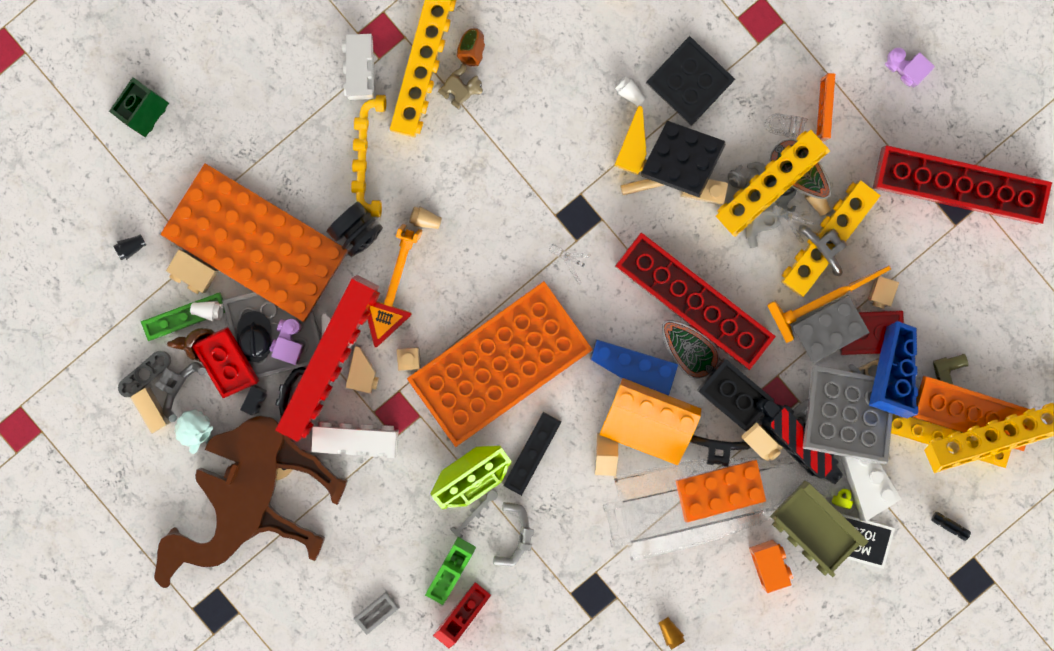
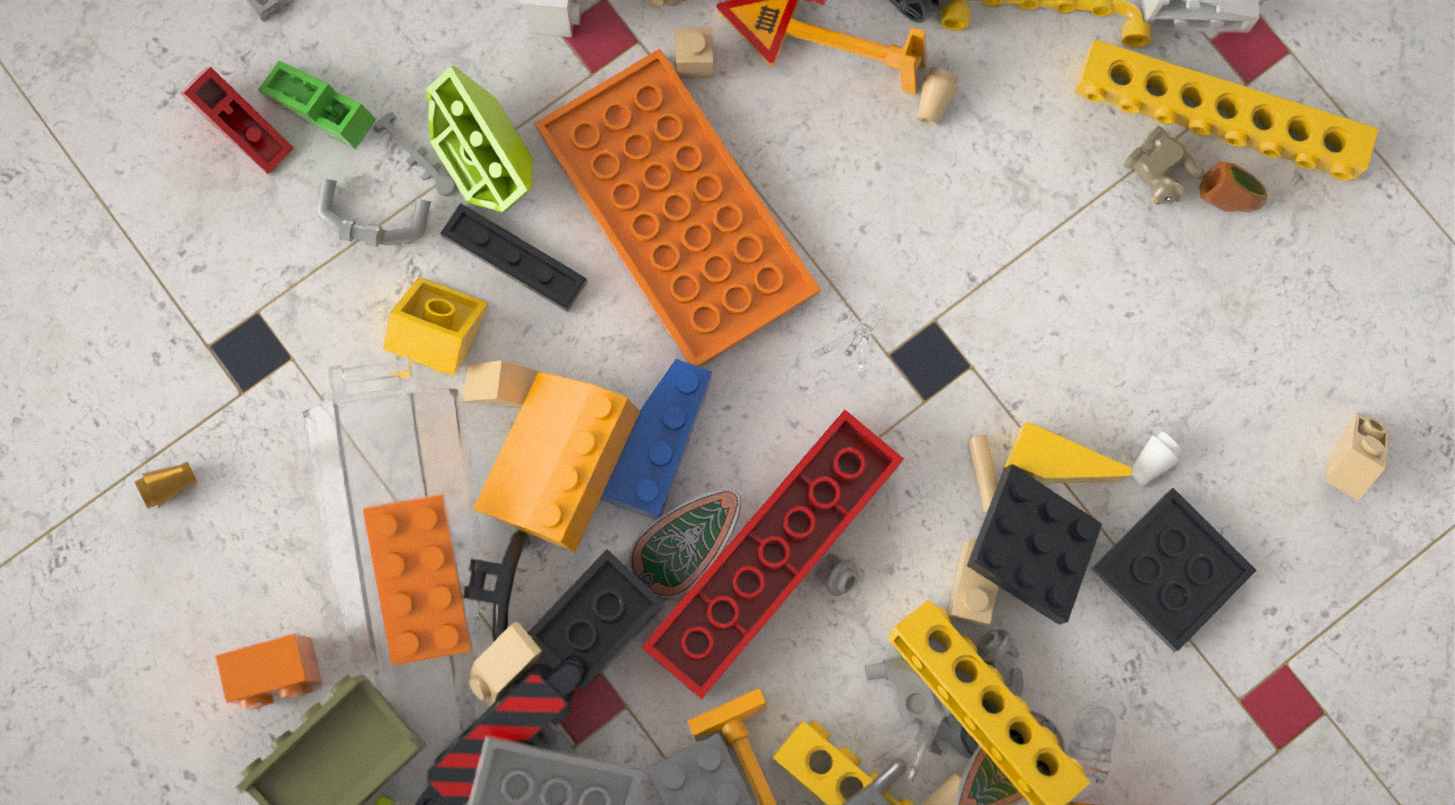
camera: 90 degrees right, 10 degrees down
(575, 494) = (434, 325): none -> yellow slope
(704, 262) = (842, 578): none -> light grey plate

